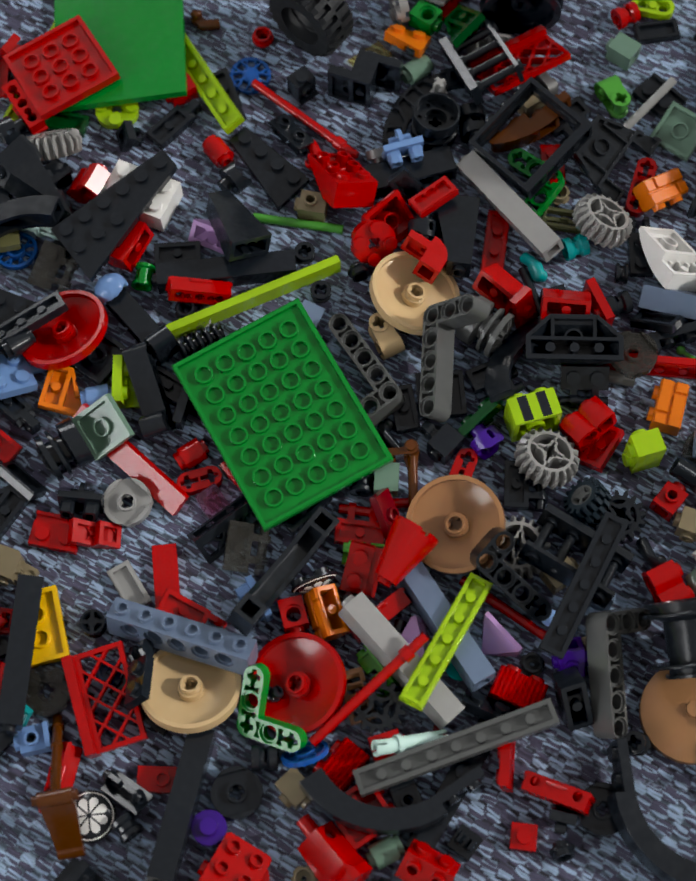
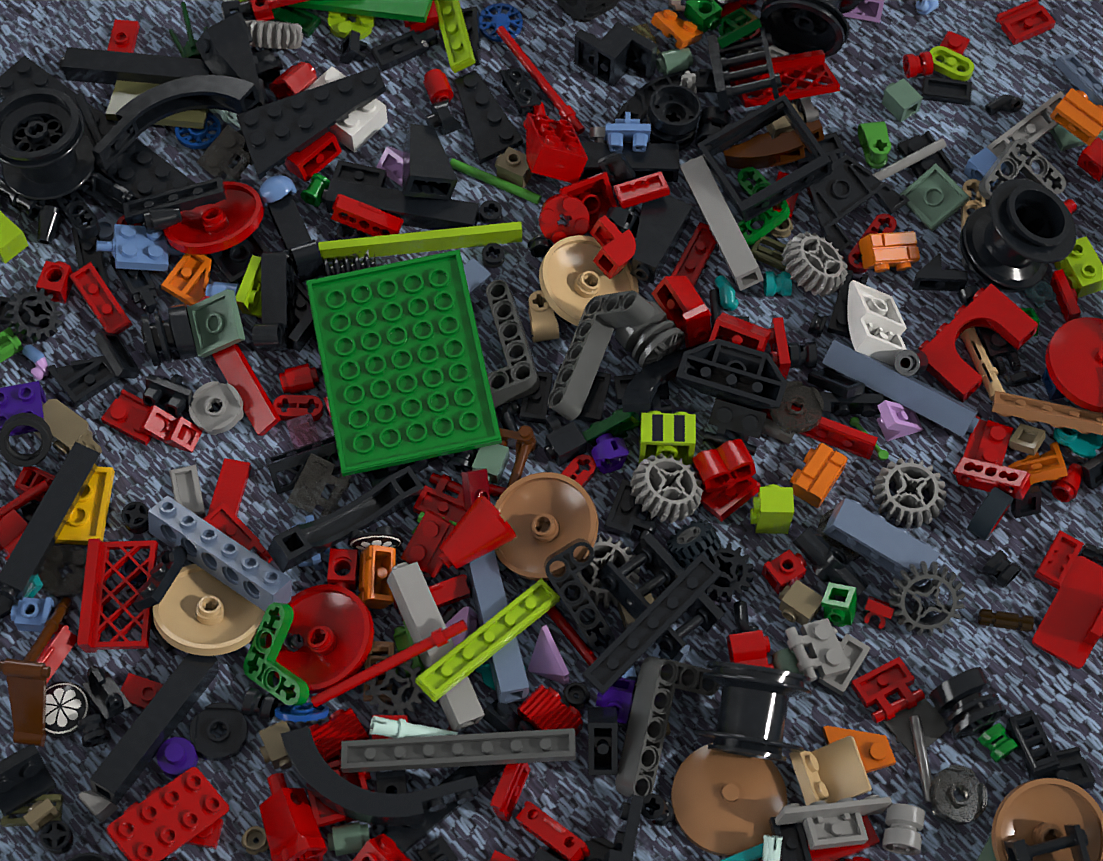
camera: 15 degrees right, 5 degrees down
(302, 85) = (548, 45): black brick -> none

